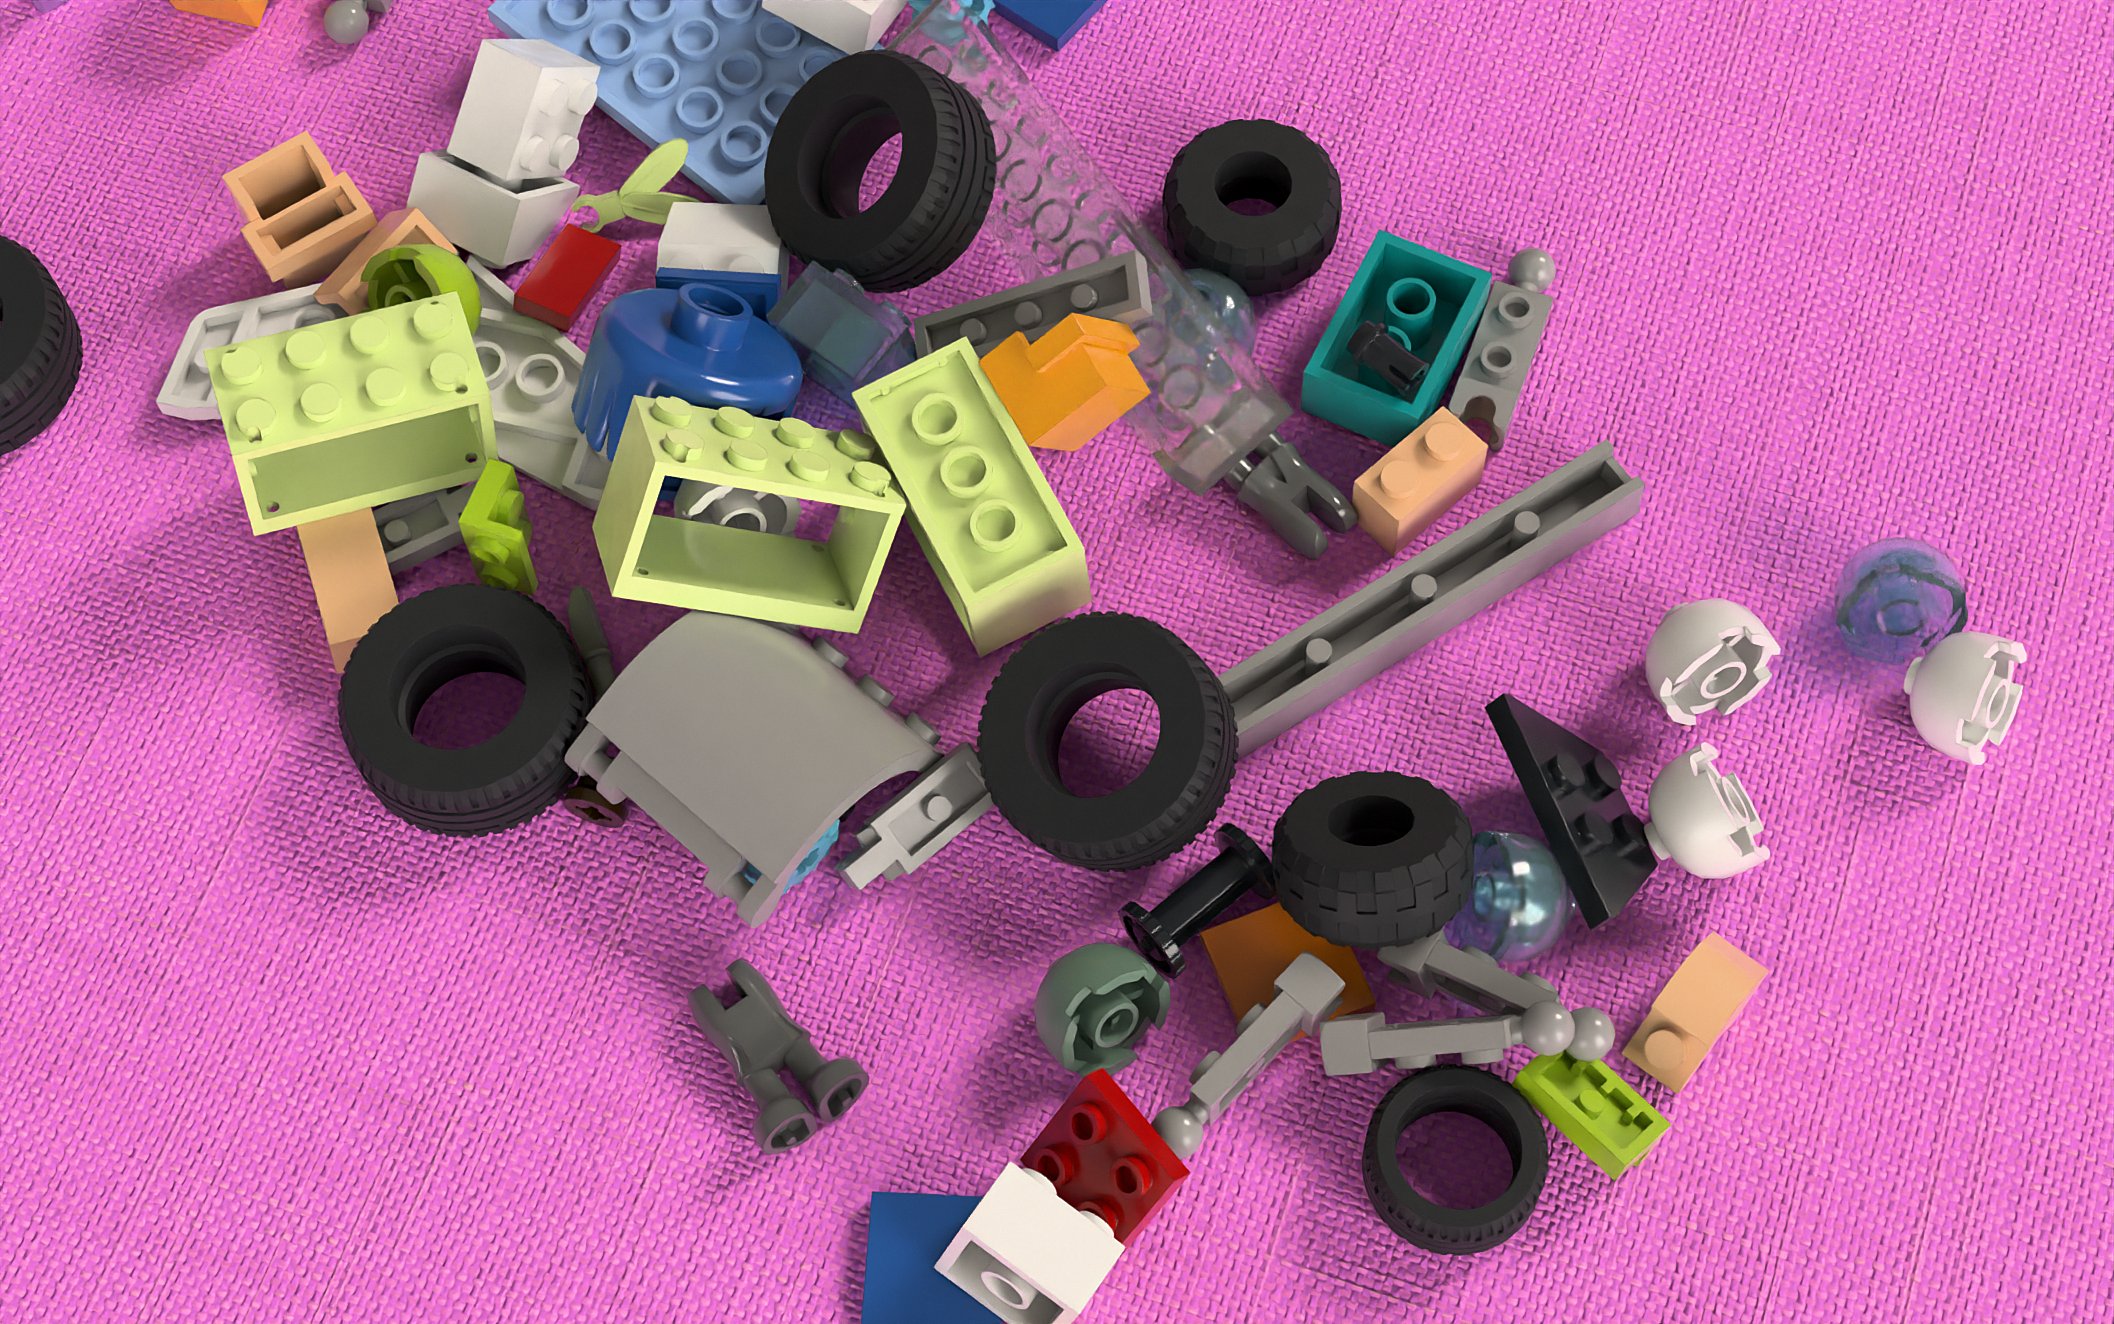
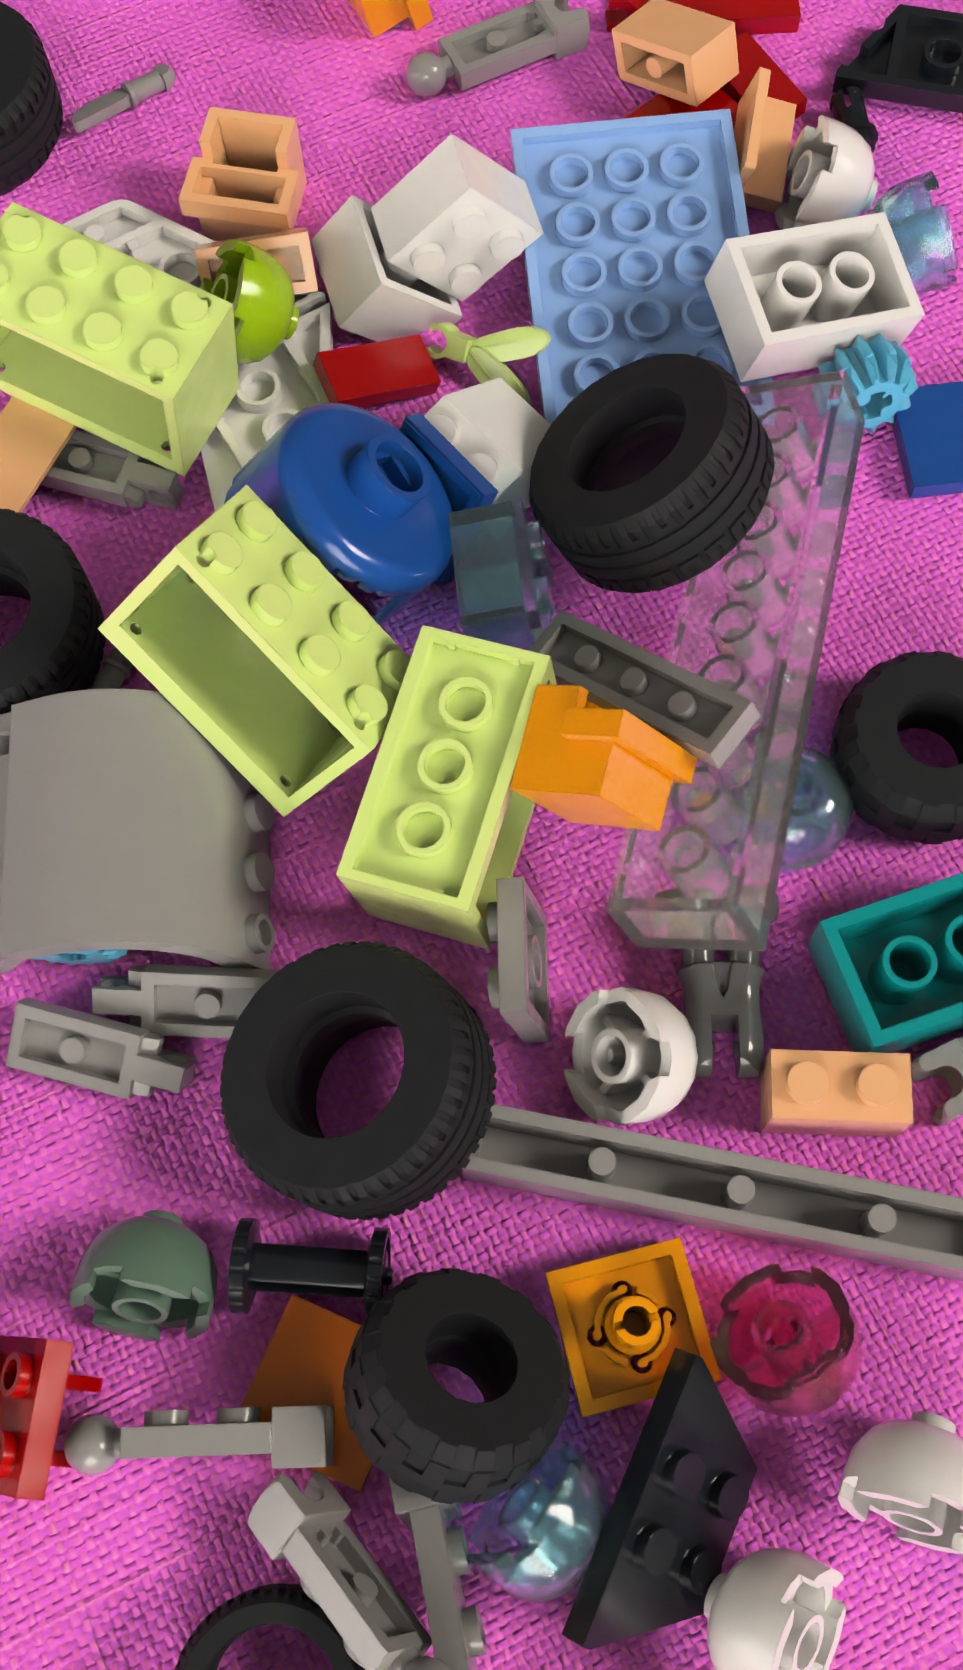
camera: 45 degrees right, 5 degrees up
(93, 238) = (121, 99): none -> light grey piece
(499, 530) = (130, 512): lime bracket -> none
(887, 916) = (94, 1051): none -> light grey hinge
(1122, 567) = (521, 979): none -> light grey plate
(1264, 572) = (629, 1056): none -> white cylinder
(1386, 357) = (895, 973): black pin -> none
(1448, 724) = (632, 1325): none -> light orange plate
(1546, 646) = (788, 1341): none -> clear pink cylinder

